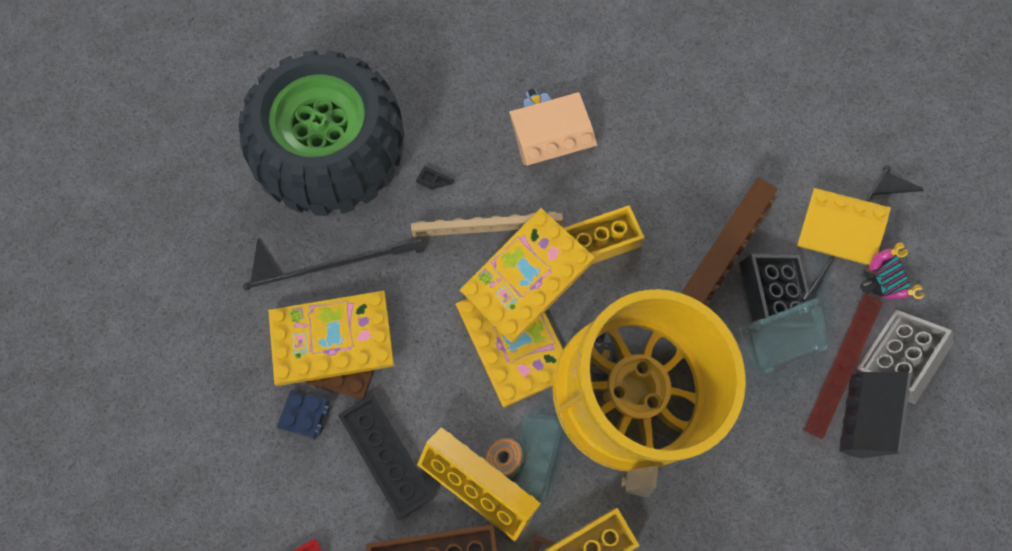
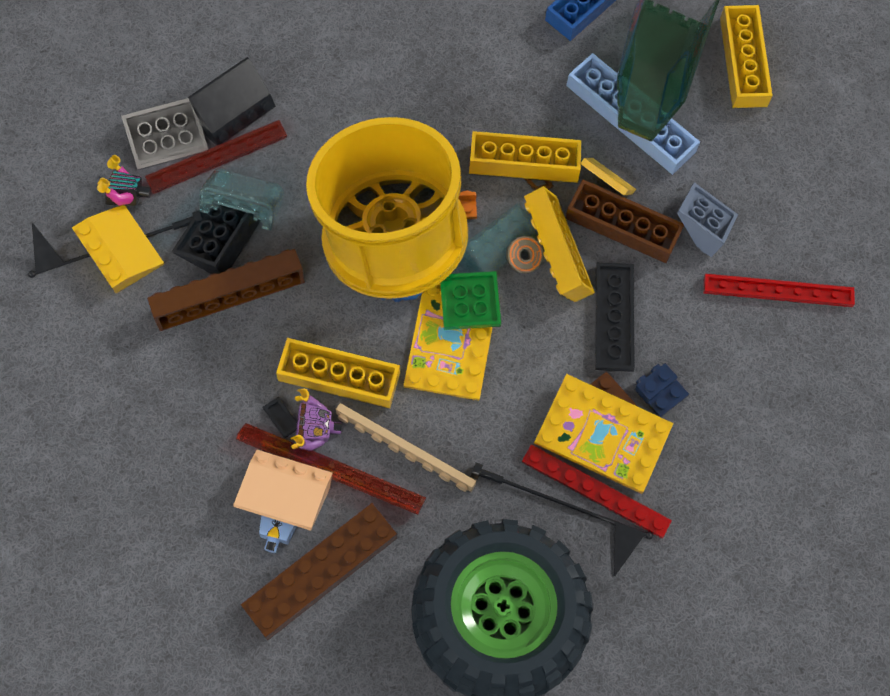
camera: 150 degrees left, 0 degrees up
(306, 292) = (596, 491): none -> red plate
(433, 179) = (420, 527): black tile -> none
(483, 101) = (319, 571): none -> reddish brown brick
(519, 376) = (470, 301): none -> green plate
(527, 275) = (407, 370): yellow plate -> none
(532, 174) = (340, 472): none -> clear red plate
(570, 192) = (313, 423): none -> torso
(590, 474) = (468, 201): none -> orange bracket
(601, 189) = (281, 417): none -> black tile

